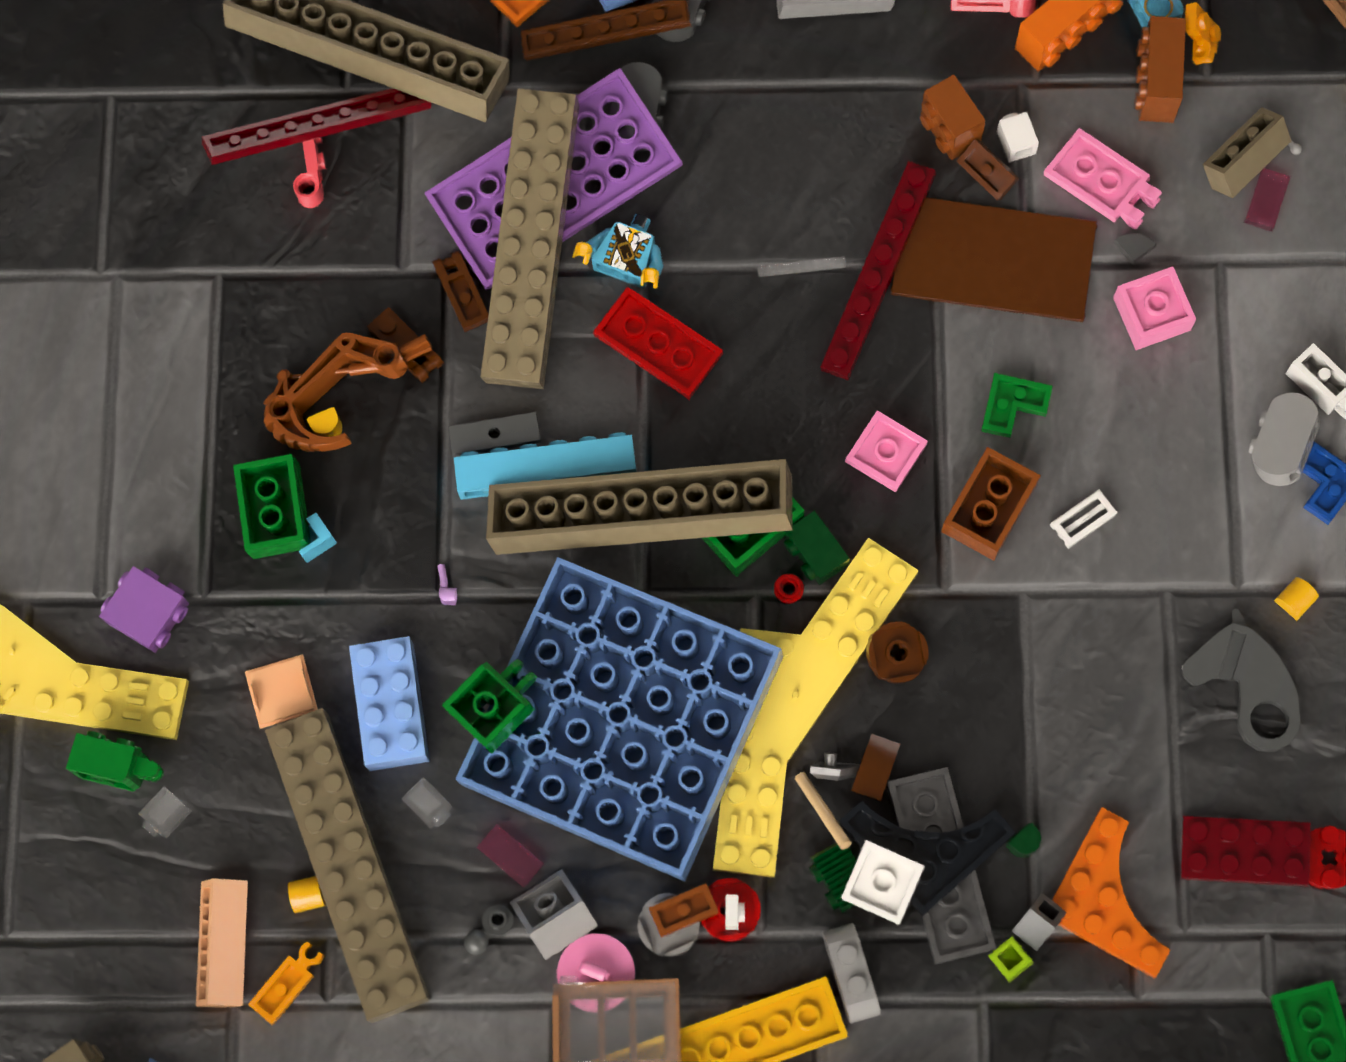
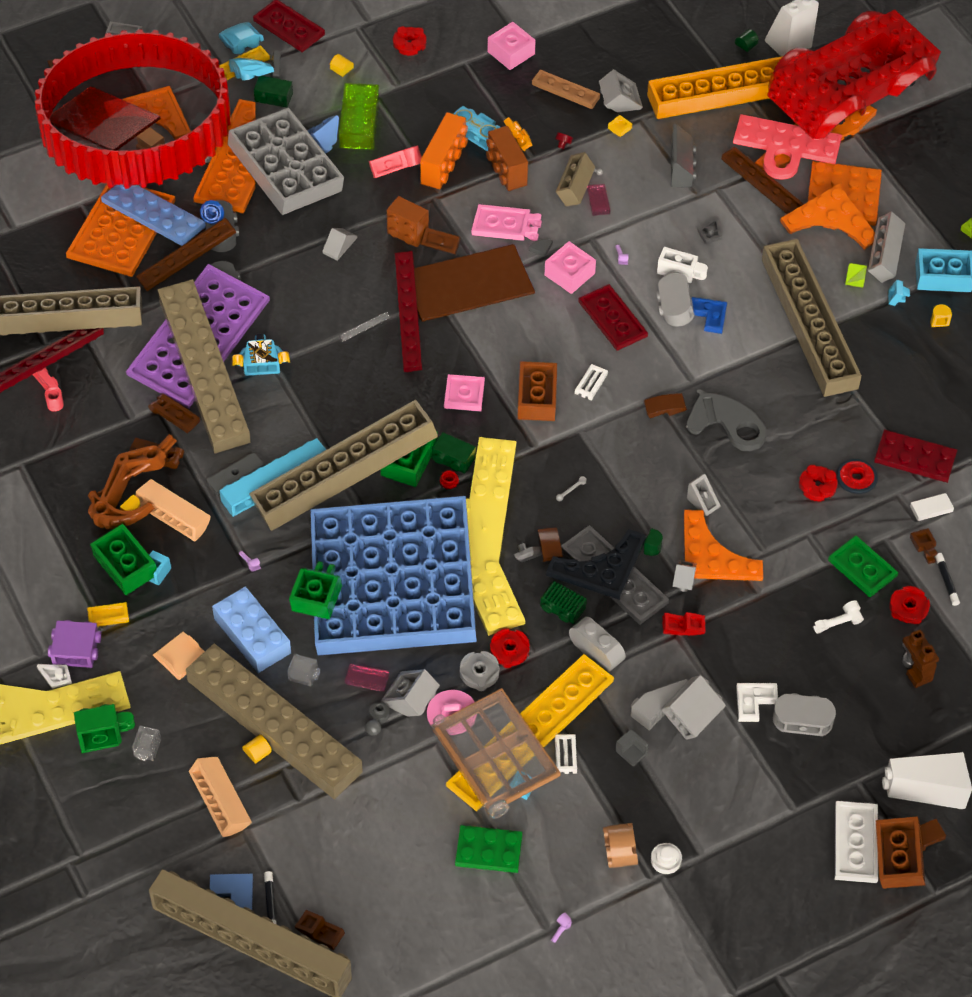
camera: 35 degrees left, 20 degrees down
(101, 641) = (55, 674): none -> white piece
(215, 578) = (108, 614): none -> yellow tile
(285, 985) = (271, 800): light orange plate -> none
(380, 452) = (174, 510): none -> light nougat brick
(658, 342) = (304, 392): red plate -> none
(683, 910) = (484, 653): dark orange plate -> none
(734, 912) = (513, 641): white plate -> none
(823, 811) = (533, 574): tan bar -> none
(839, 101) = (338, 242): none -> light grey slope
(883, 882) = (588, 586): white plate -> none
(907, 638) = (521, 489): reddish brown plate -> none
(980, 681) = (582, 480): none -> light grey hinge
(998, 996) = (683, 625): none -> red slope
(1010, 959) = (680, 601): lime slope -> none
(1012, 395) = (517, 340): green plate -> none
(1017, 136) = (447, 219): white brick -> none
(1141, 800) = (702, 495): none -> light grey slope
(1171, 612) = (664, 404): none -> reddish brown slope
(1176, 420) = (613, 317): none -> dark red tile
(1246, 851) = (773, 496): dark red plate -> none
(1247, 324) = (622, 258): none -> lavender hand
(1269, 68) = (564, 139): none -> dark red tile
(1297, 597) = (727, 370): yellow brick -> none

